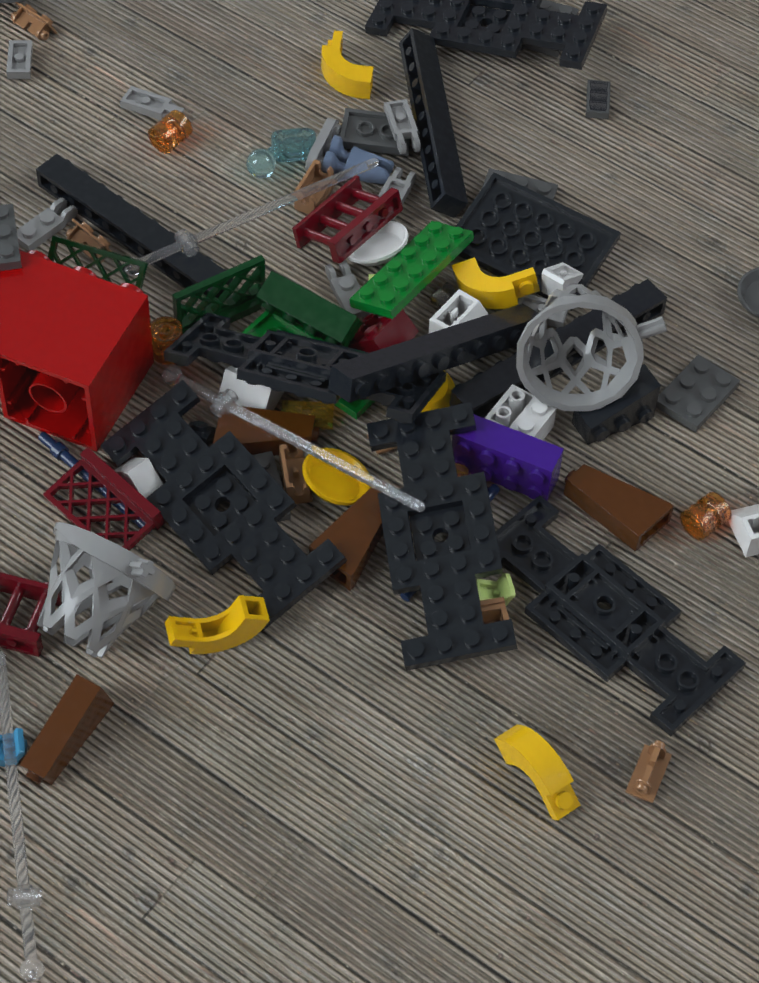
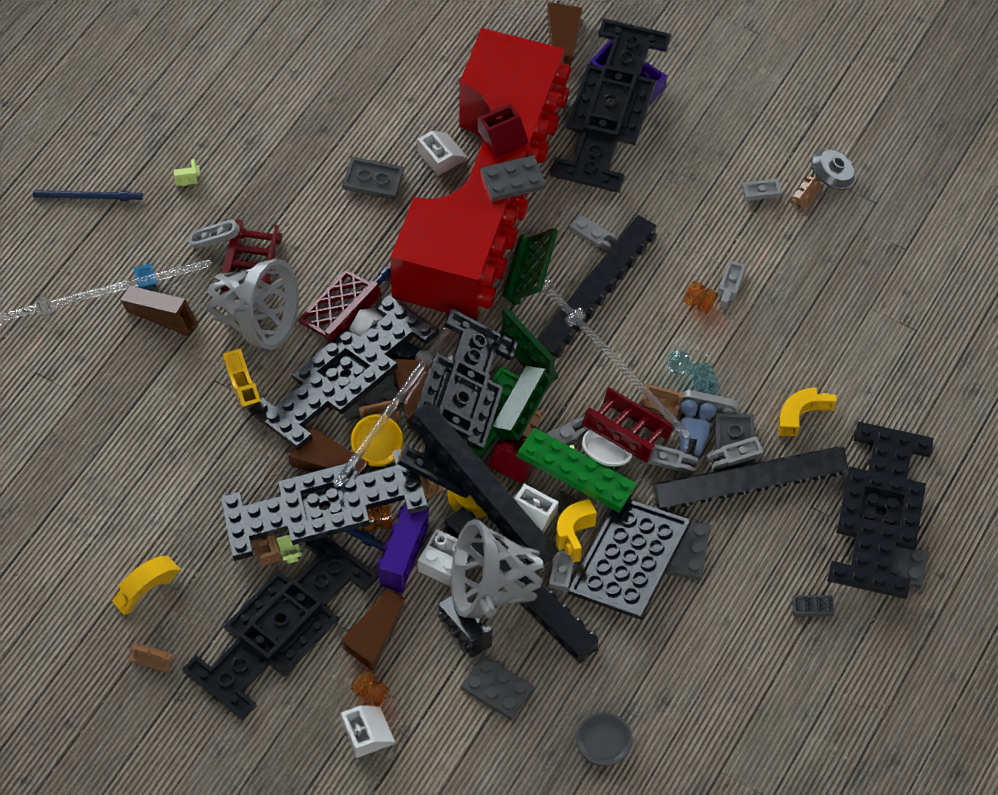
camera: 85 degrees right, 5 degrees up
(83, 234) = (583, 262): medium nougat hinge -> none
(164, 332) = (489, 316): clear orange wheel -> none
(559, 277) = (584, 575): white slope -> none

